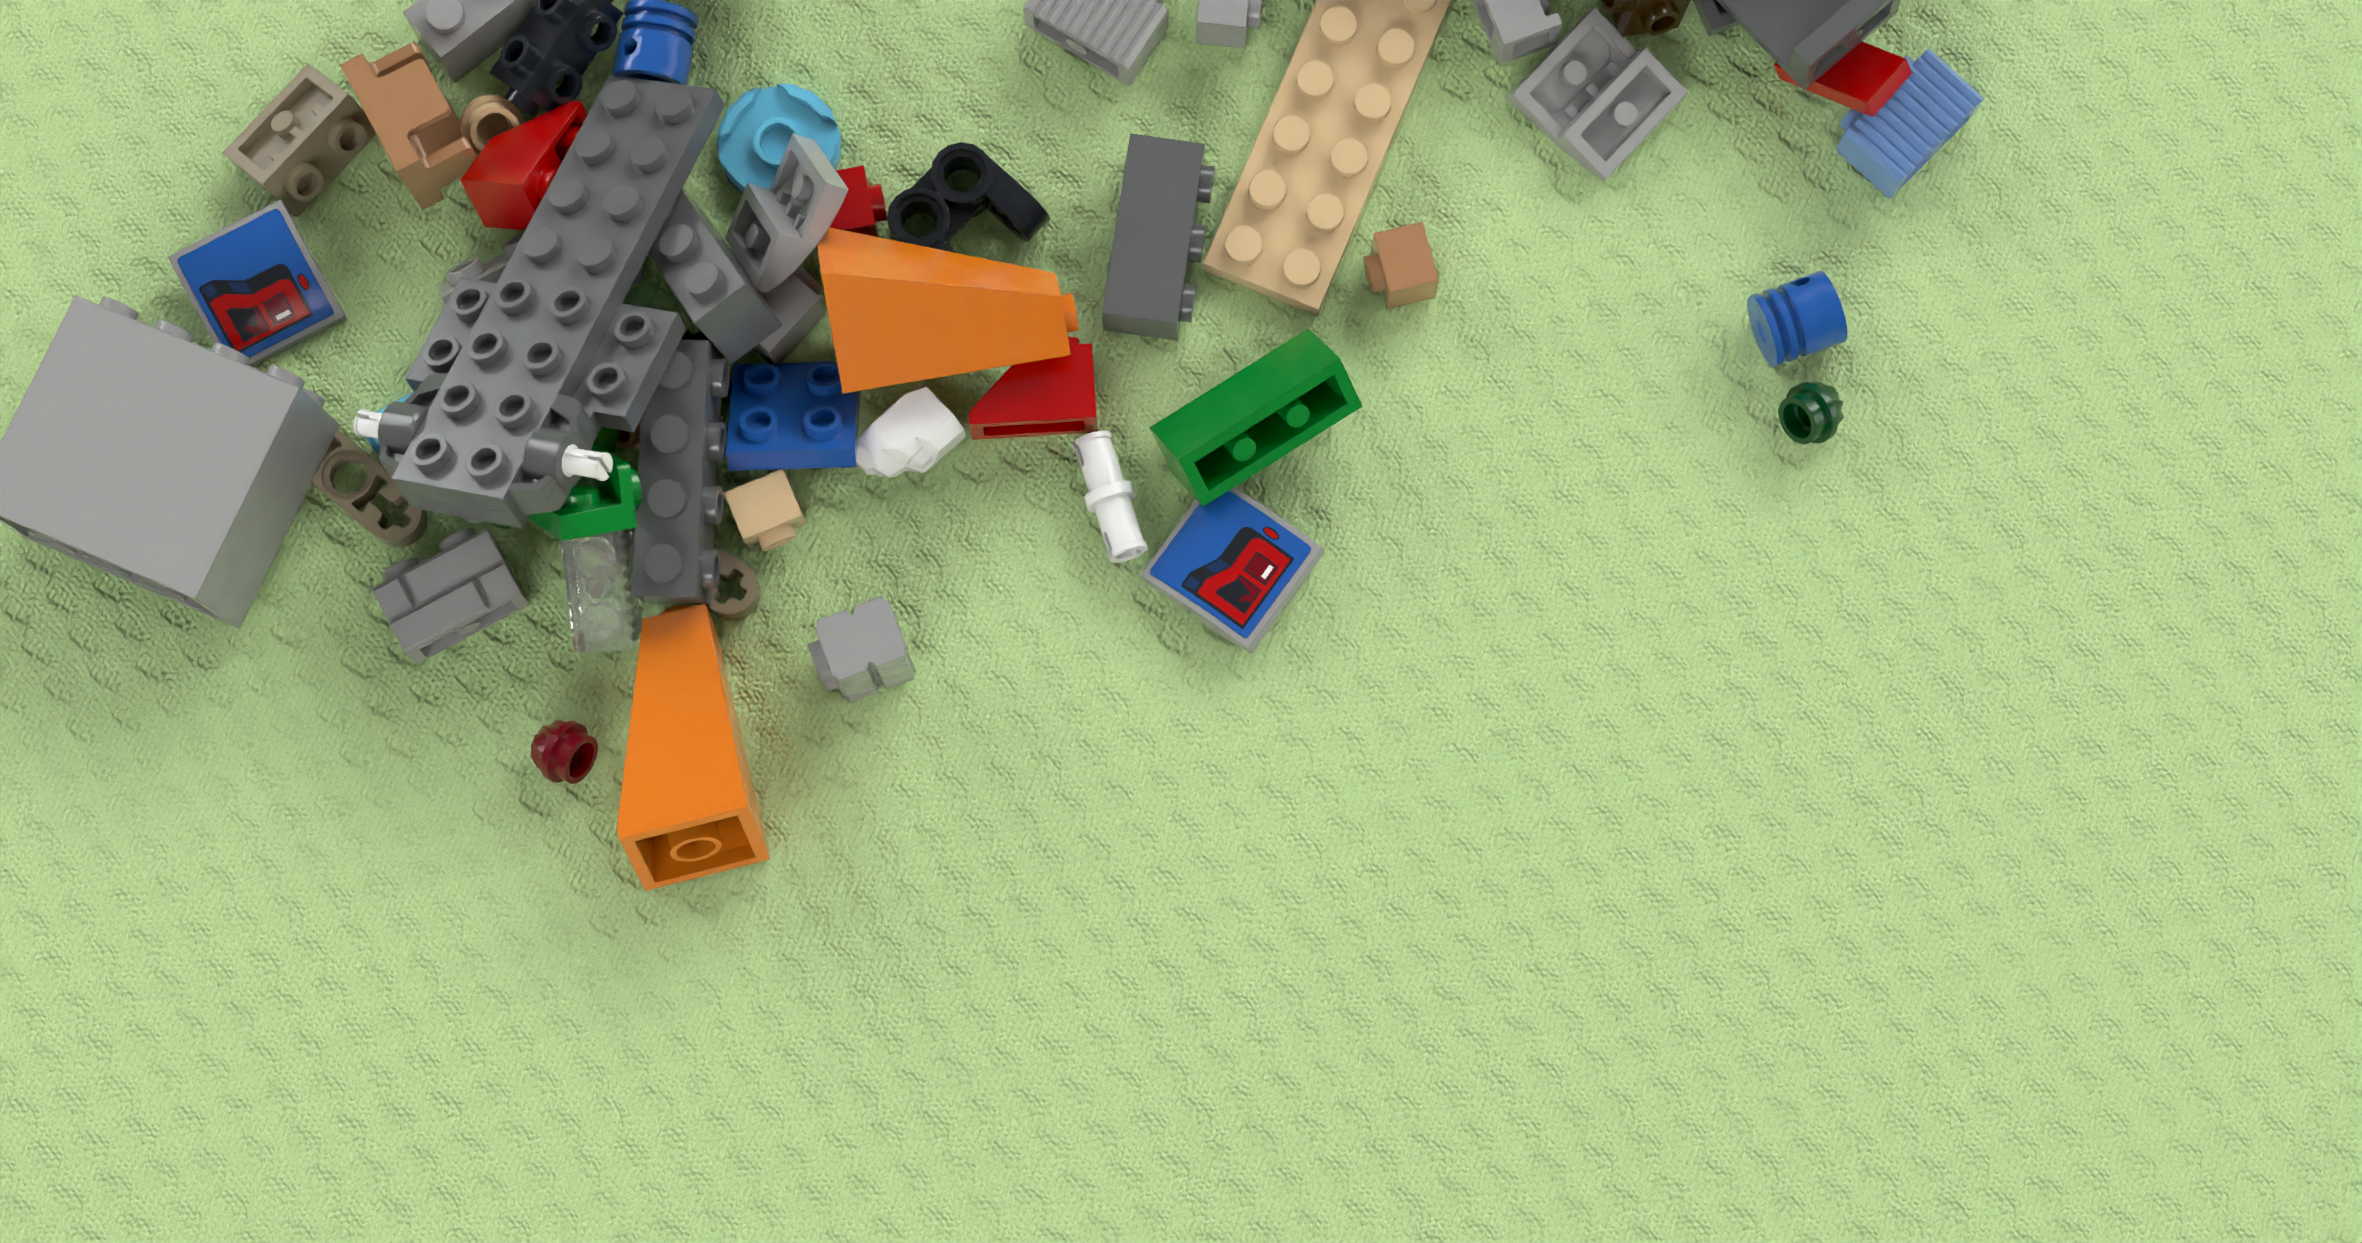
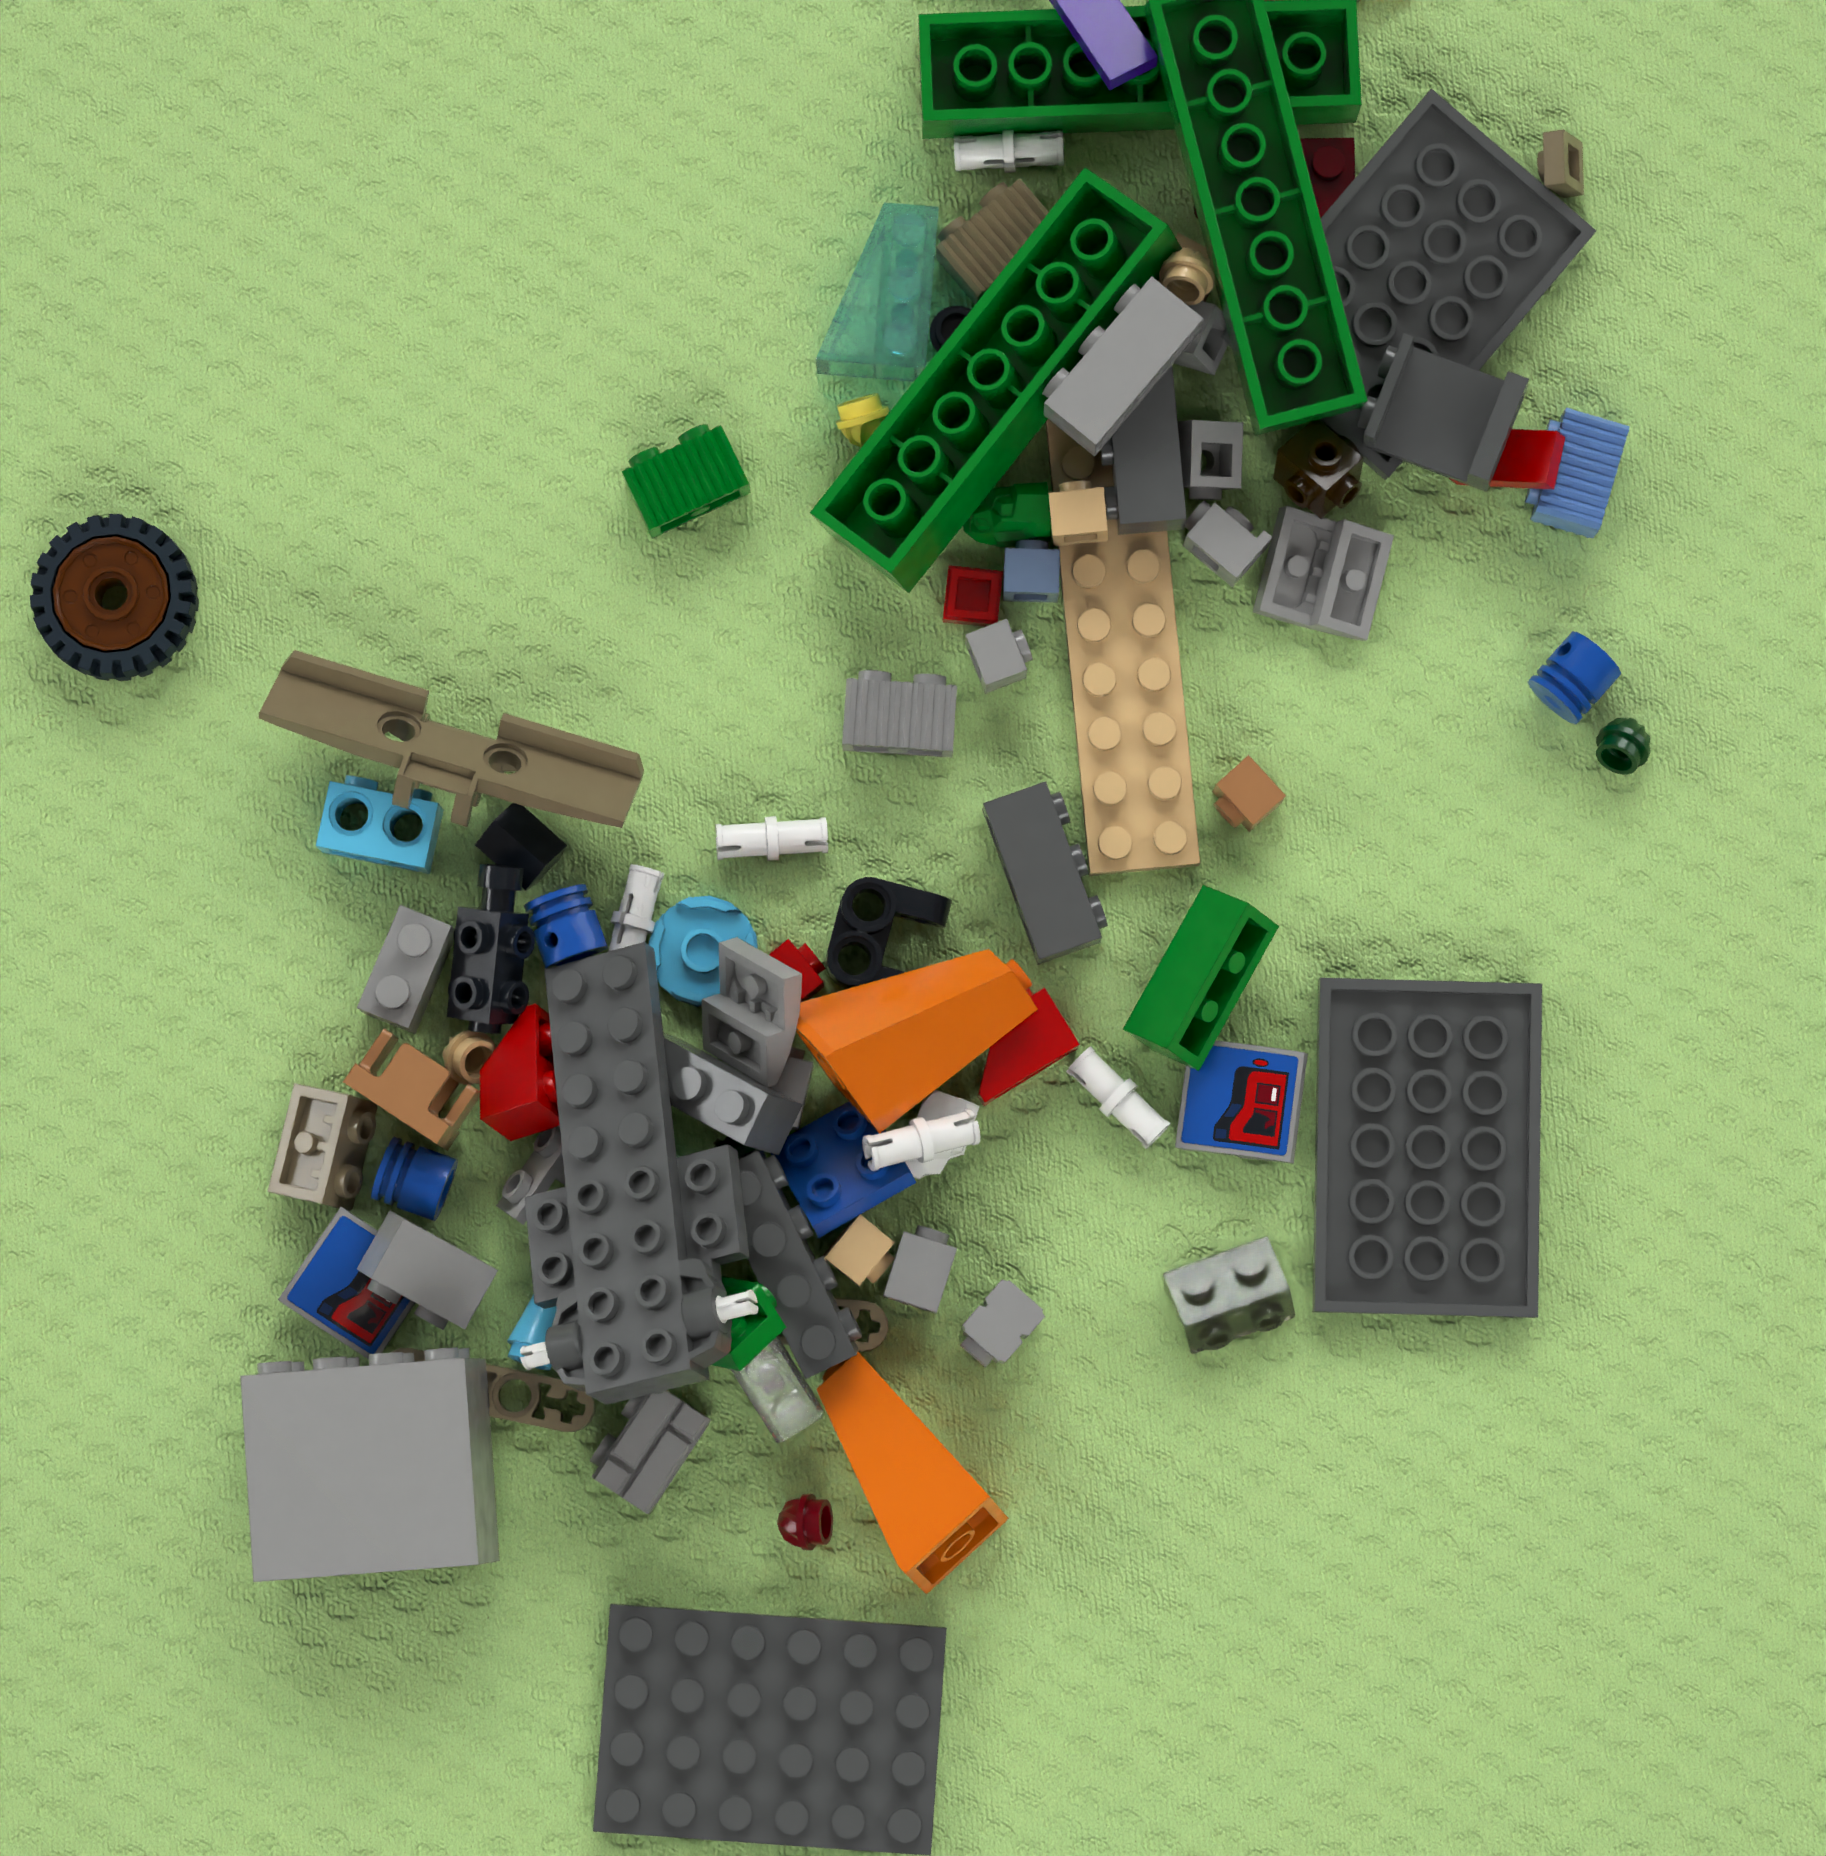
camera: 30 degrees left, 5 degrees up
(326, 304) = (426, 1271): none -> light grey brick
(369, 212) = (414, 1178): none -> blue piece
(412, 941) = (770, 1729): none -> dark grey plate
(740, 64) = (636, 907): none -> white pin
(816, 561) = (921, 1269): none -> light grey brick
(881, 422) = (921, 1140): none -> white pin
(905, 69) = (771, 838): none -> white pin
(1114, 752) = (1230, 1295): none -> clear smoke bracket
(1395, 709) = (1427, 1148): none -> dark grey plate

